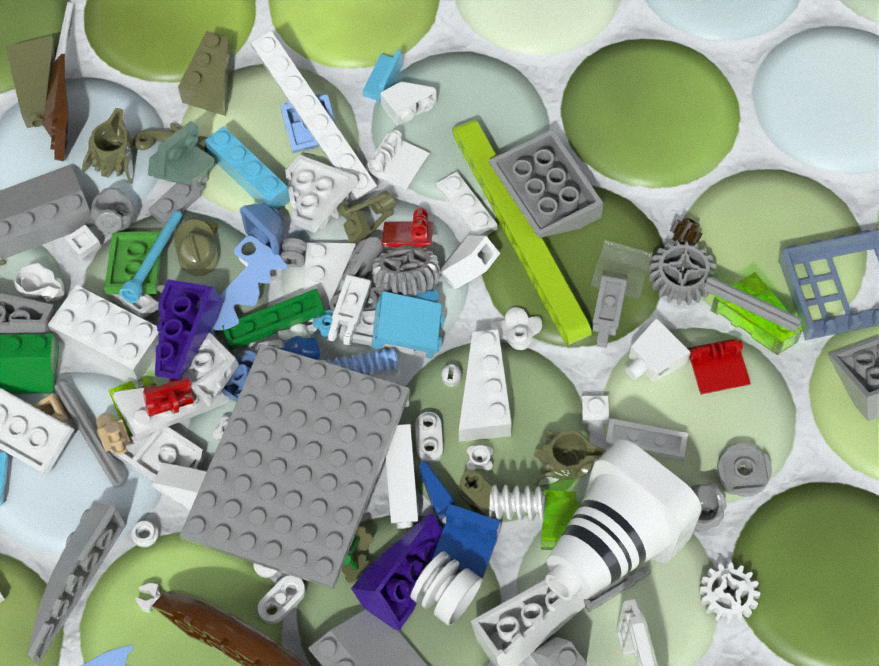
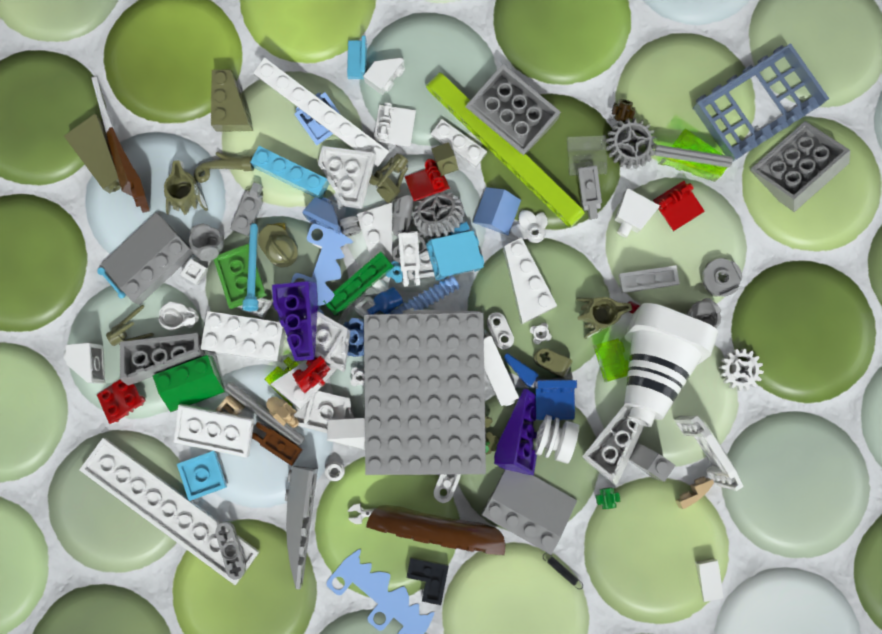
camera: 20 degrees left, 20 degrees up
(89, 475) = (278, 444): none -> reddish brown hinge
(180, 158) = (240, 184): sand green piece -> none
(440, 214) = (445, 159): none -> olive brick
(457, 375) = (493, 279): white hinge -> none
(469, 260) = (479, 188): white slope -> none
(484, 297) = (497, 210): none -> medium blue slope
(517, 502) = (582, 363): white piece -> none
(595, 410) = (605, 268): white plate -> none

